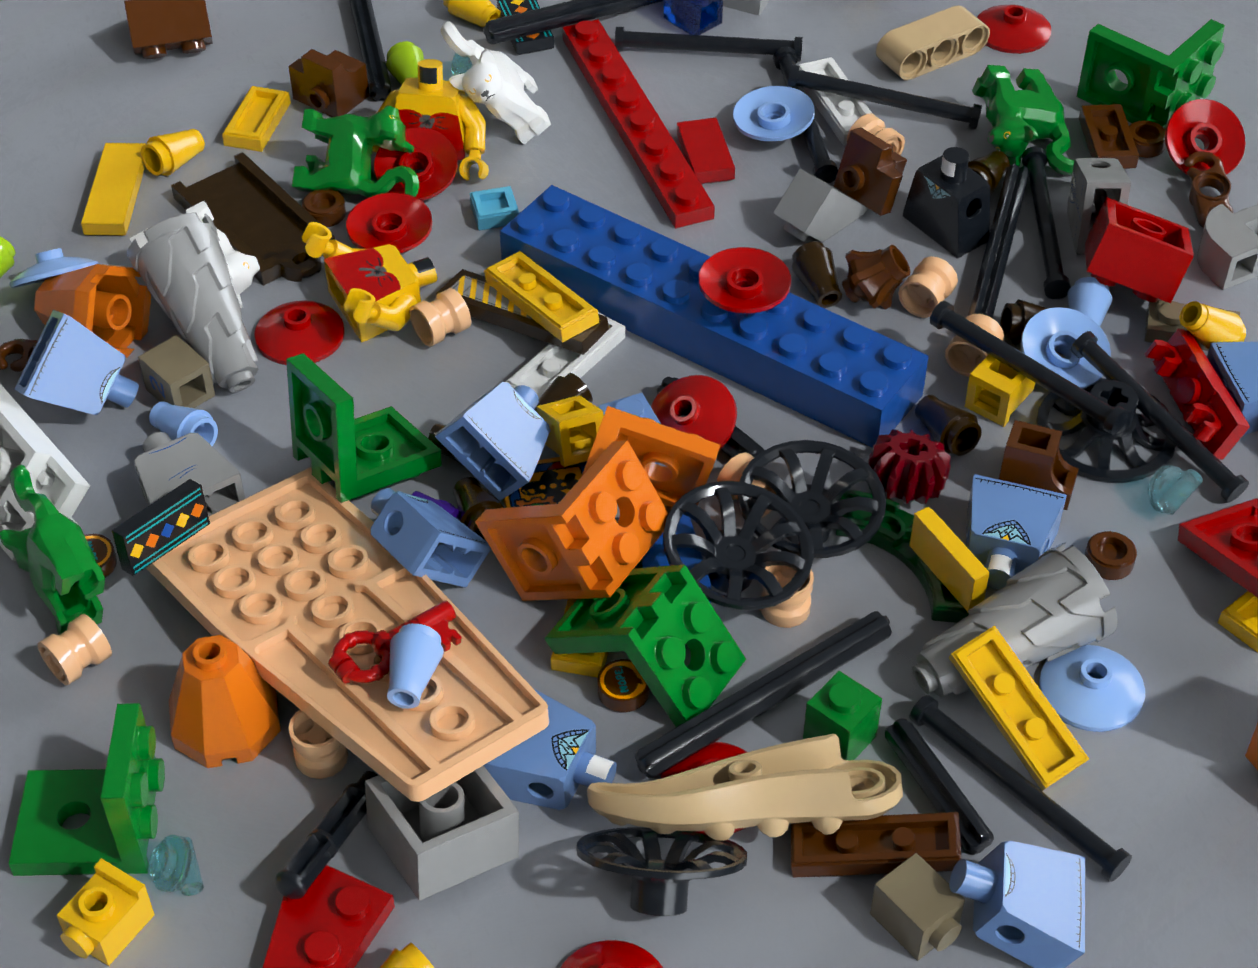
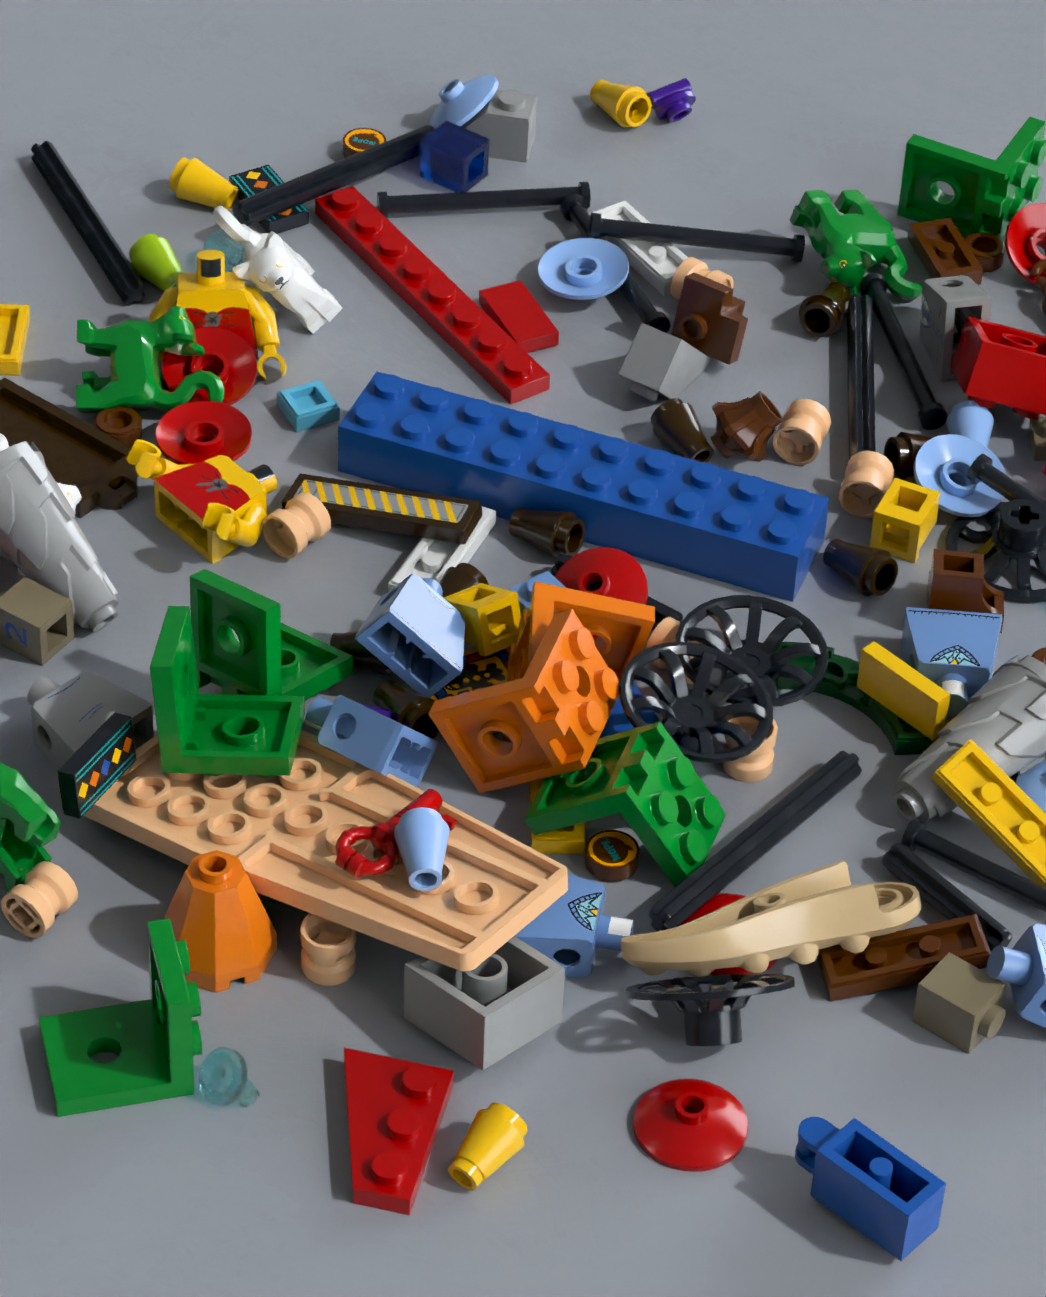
camera: 15 degrees left, 5 degrees down
(105, 914) = (176, 1128): yellow brick -> none
(182, 420) = (56, 665): light blue cone -> none
(269, 506) = (204, 730): none -> green bracket
(299, 329) = (144, 561): red dish -> none
(324, 840) = (372, 1028): black piece -> none
(329, 82) = (74, 288): reddish brown brick -> none
(541, 296) = (403, 489): yellow tile -> none
(667, 352) = (549, 531): none -> dark brown cone
(744, 280) = (625, 443): red dish -> none
(844, 710) = (843, 837): green brick -> none
(910, 466) = (839, 608): dark red gear -> none
(932, 42) = (730, 172): tan beam -> none
(950, 203) = (802, 342): black torso -> none
(1015, 28) = (809, 148): red dish -> none
(1112, 418) = (1027, 534): black bar -> none

